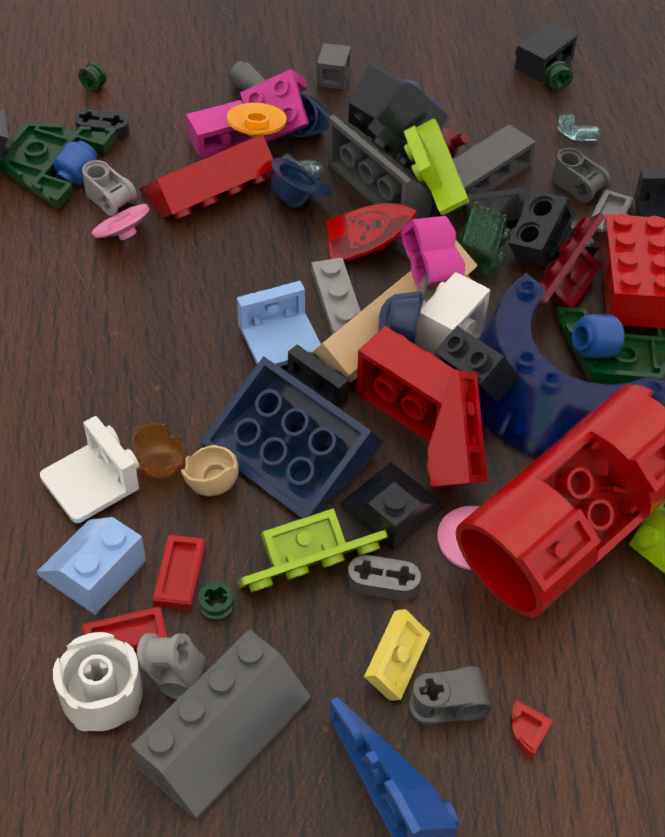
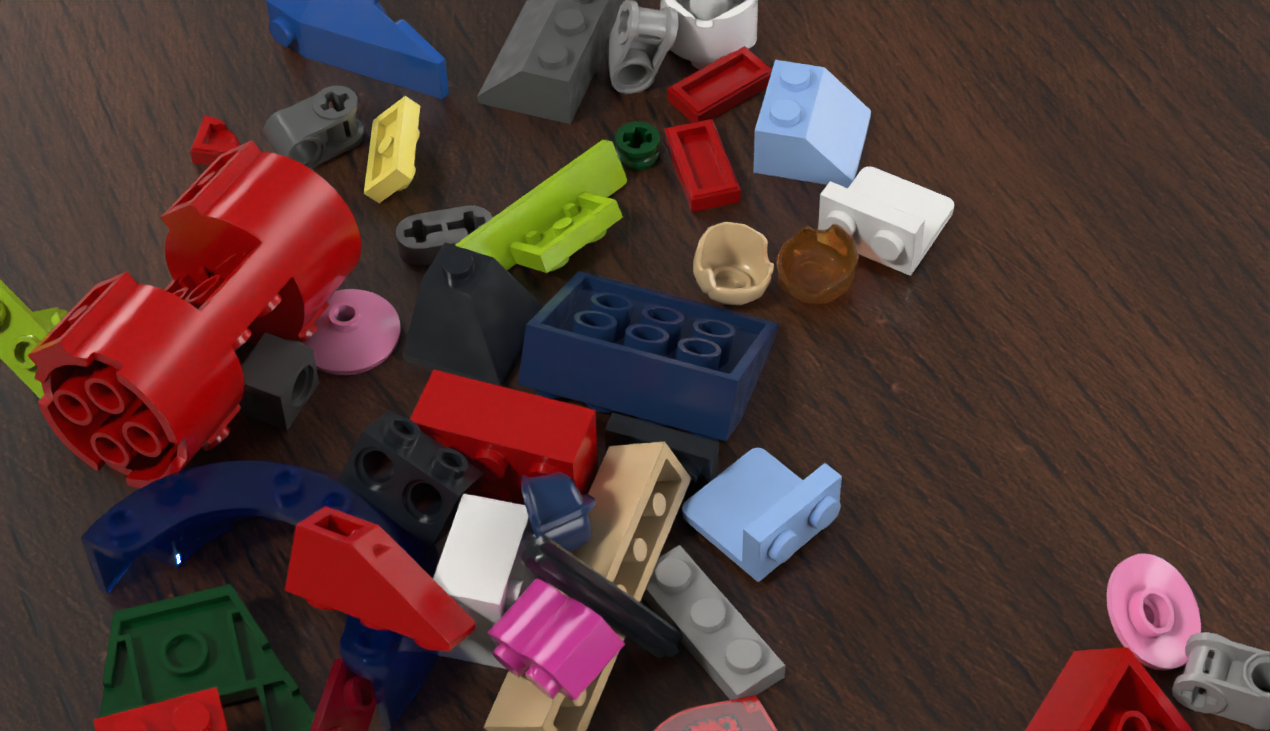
camera: 160 degrees right, 0 degrees up
(400, 267) = (600, 595): none -> black axle
(457, 441) = (394, 366): red slope -> none
(521, 289) = (366, 574): none -> red slope
(598, 336) = (230, 625): blue head -> none

